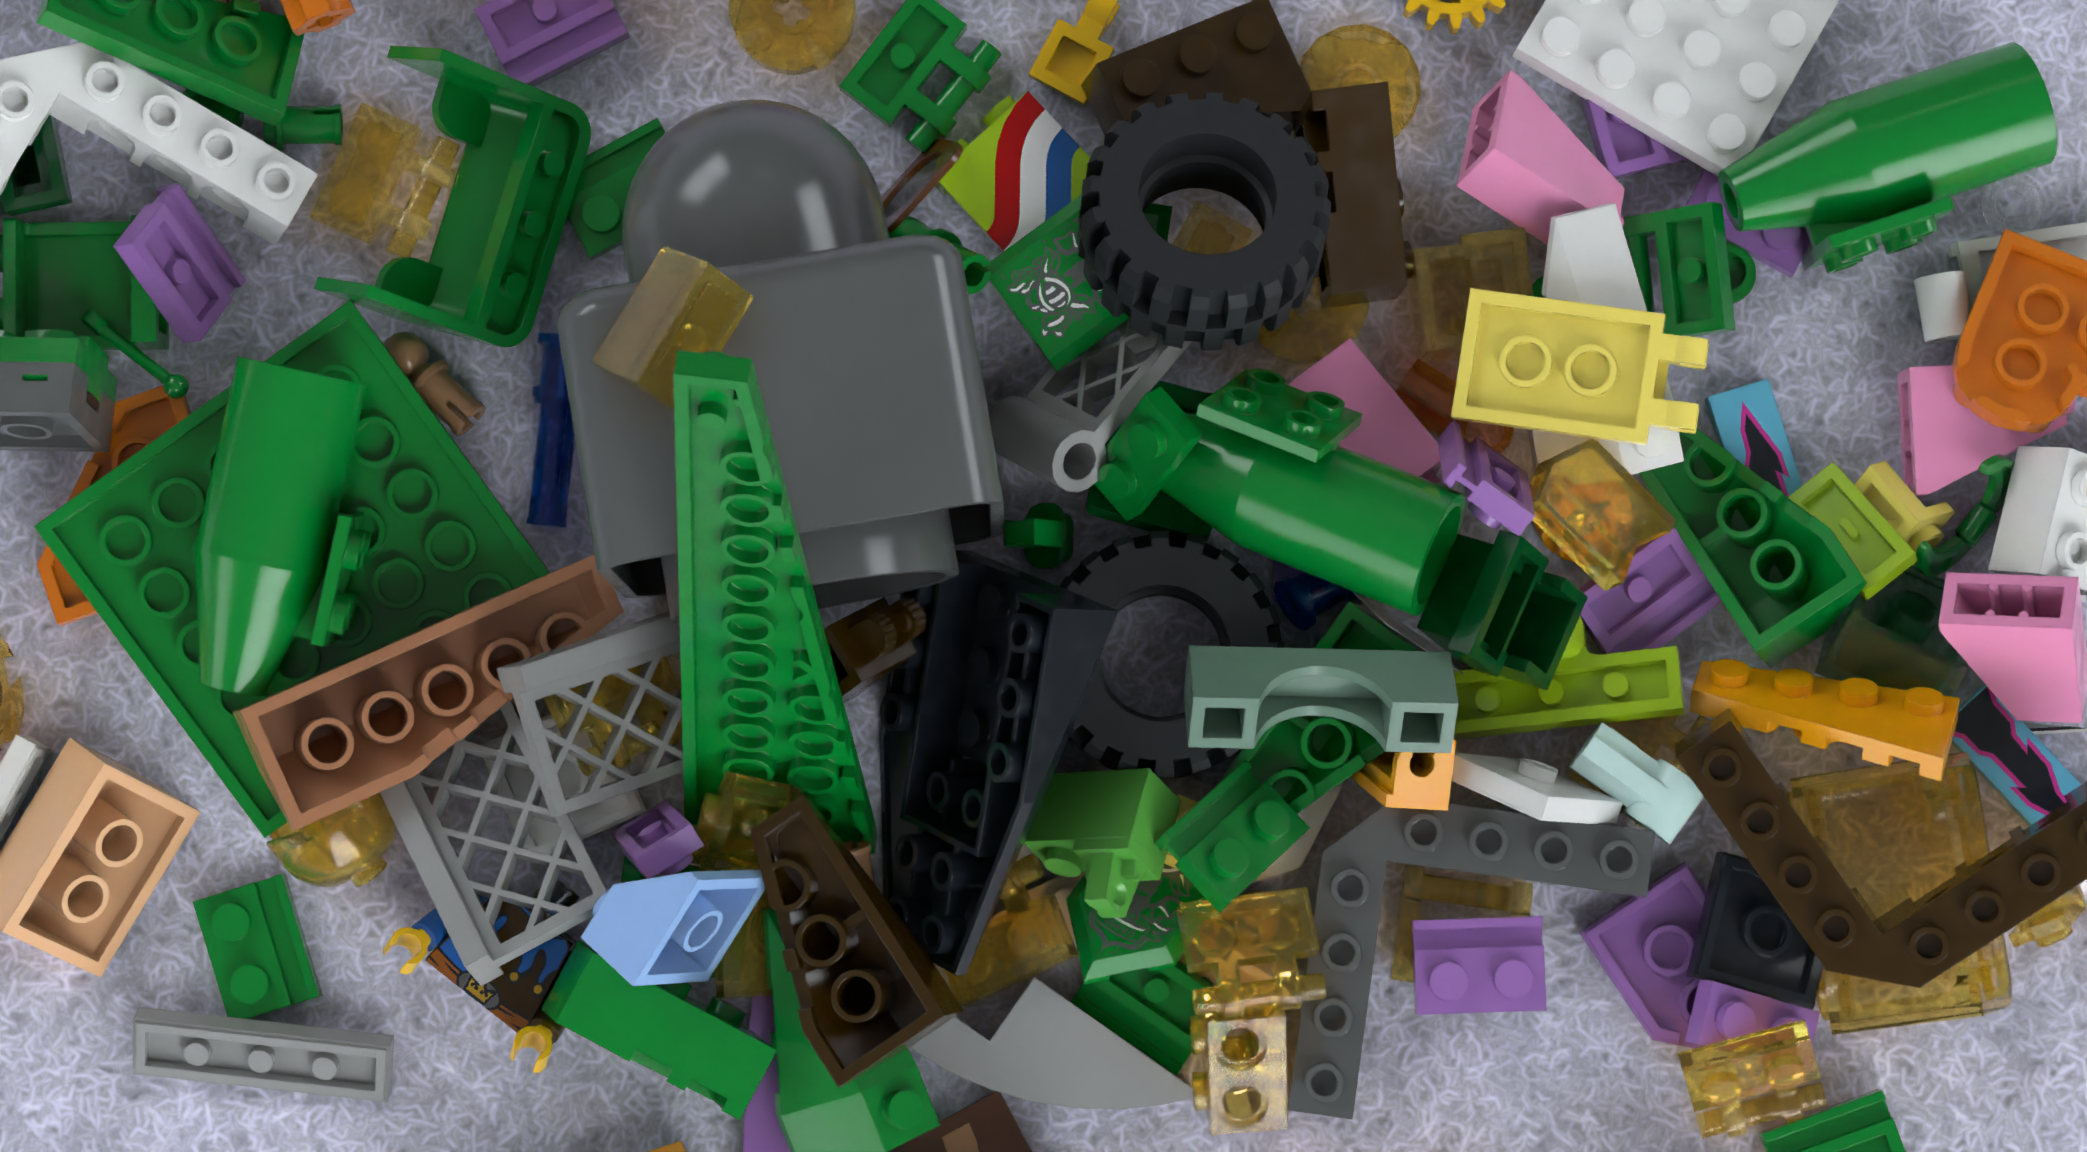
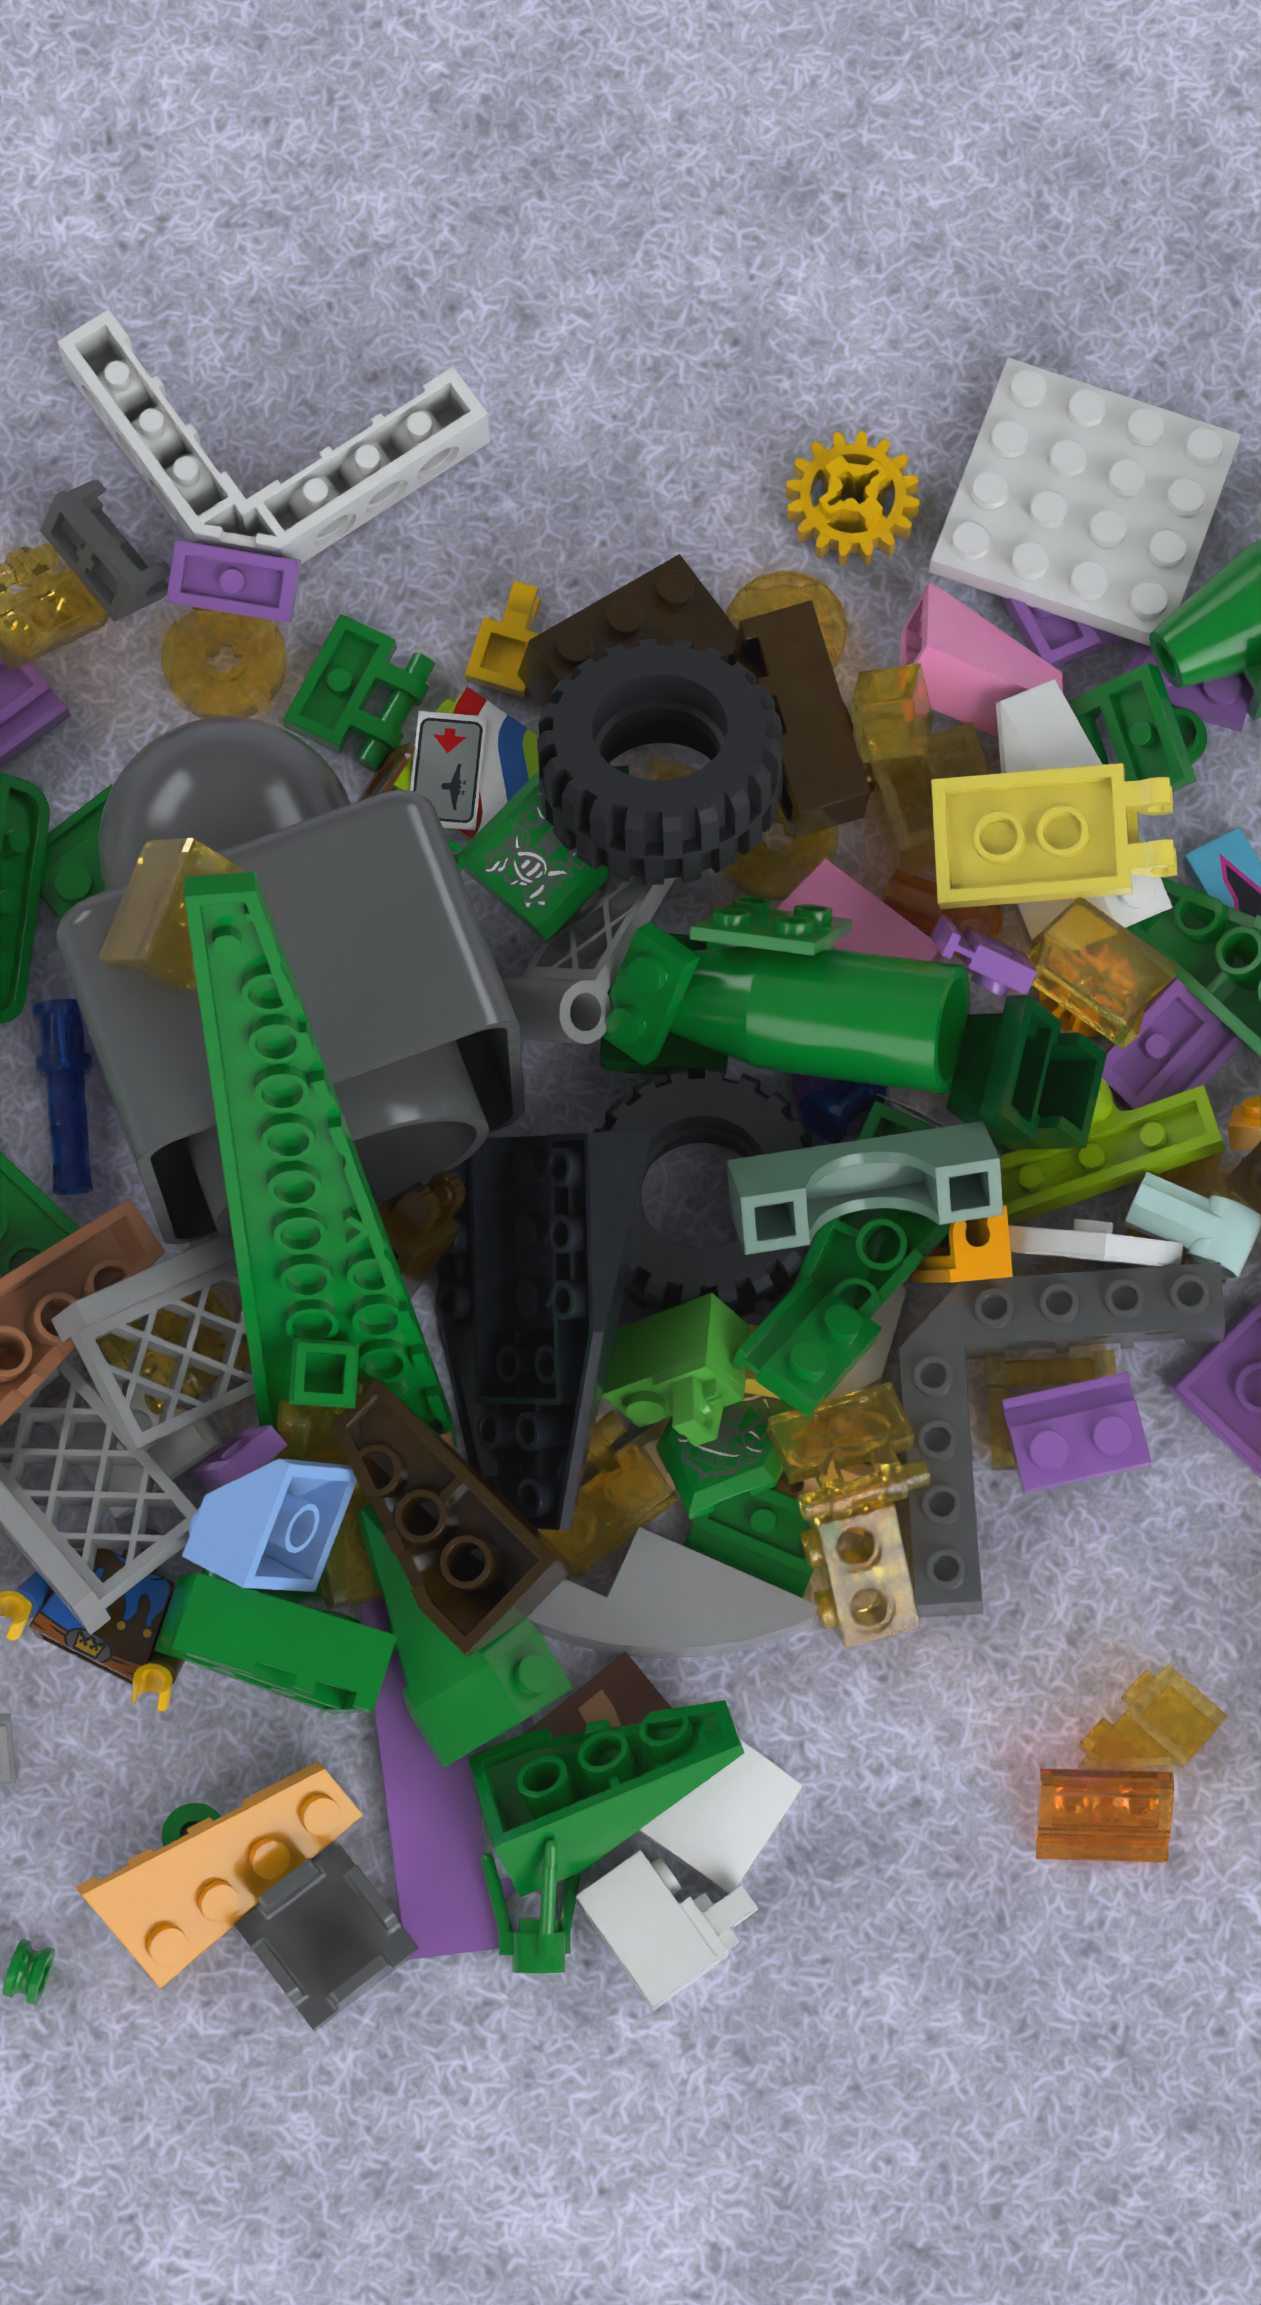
camera: 10 degrees left, 10 degrees down
(750, 783) = (322, 1373): none -> green slope
(991, 174) = (450, 765): none -> light grey sticker
(1043, 534) = (563, 1103): green piece -> none
(1445, 208) = (891, 712): none -> clear yellow brick

